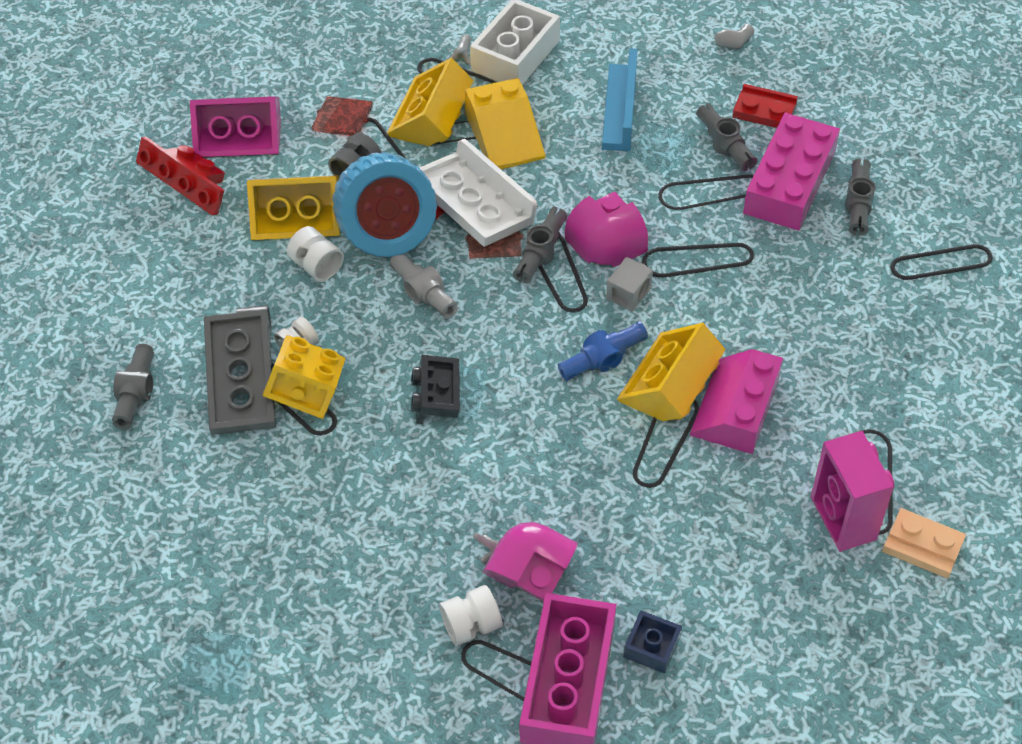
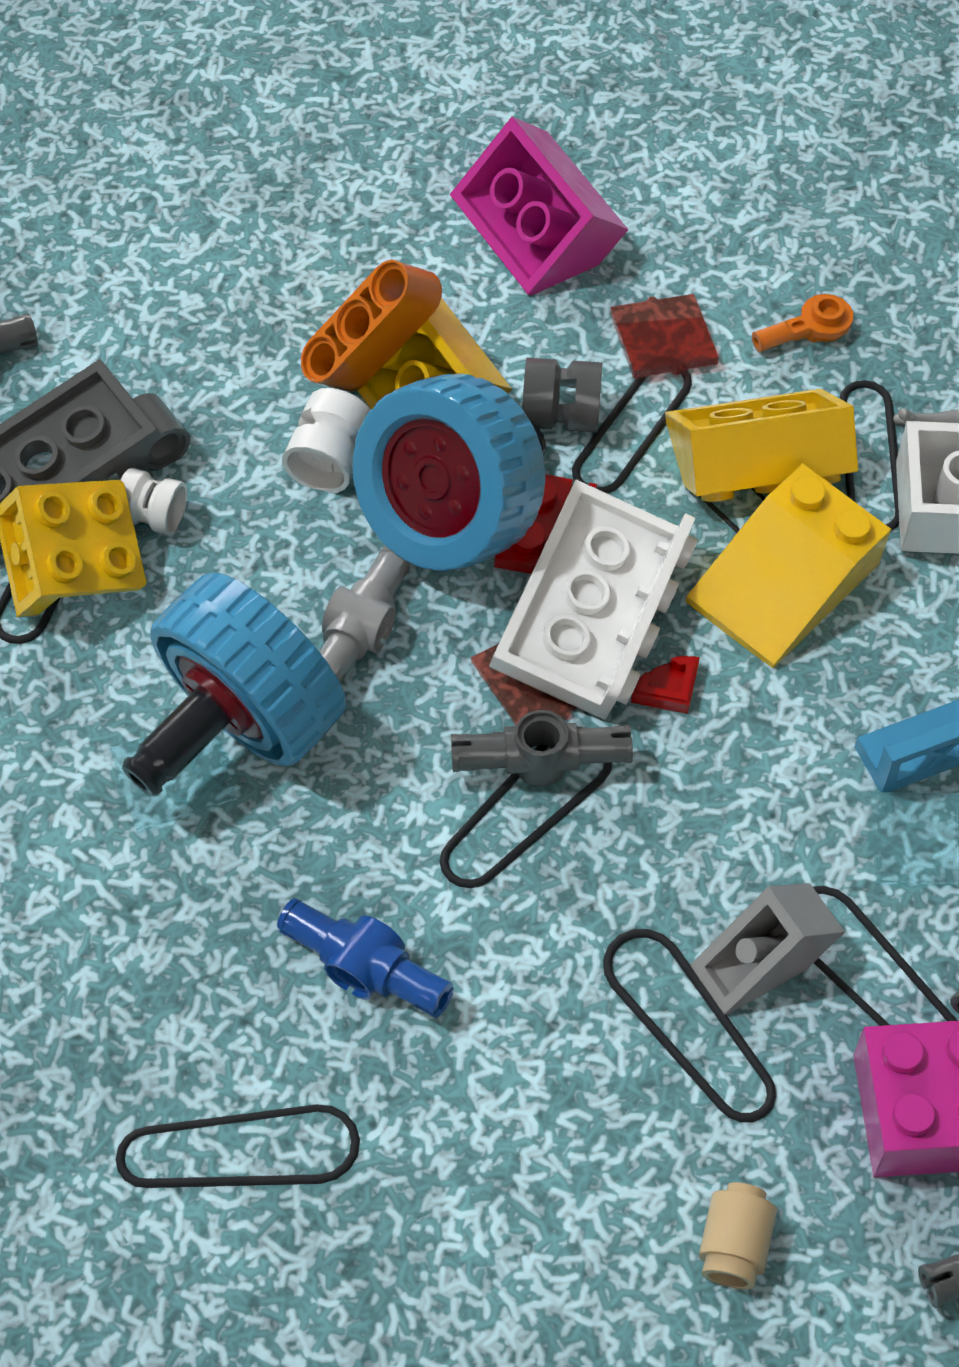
camera: 60 degrees right, 5 degrees up
(184, 172) = (409, 198): red bracket -> none
(265, 216) = (371, 325): none -> orange beam
(377, 59) = (821, 319): none -> orange plate
(436, 387) = (114, 737): black bracket -> none
(444, 318) = (242, 675): none -> dark azure wheel
(534, 189) = (668, 685): none -> red tile
(606, 230) = (637, 838): dark pink brick -> none
(629, 284) = (541, 931): light grey brick -> none
(673, 372) = (371, 1097): yellow slope -> none
(684, 213) = (767, 945): none -> light grey slope
(738, 400) = (370, 1240): dark pink slope -> none
(805, 278) = (737, 1235): none -> tan brick

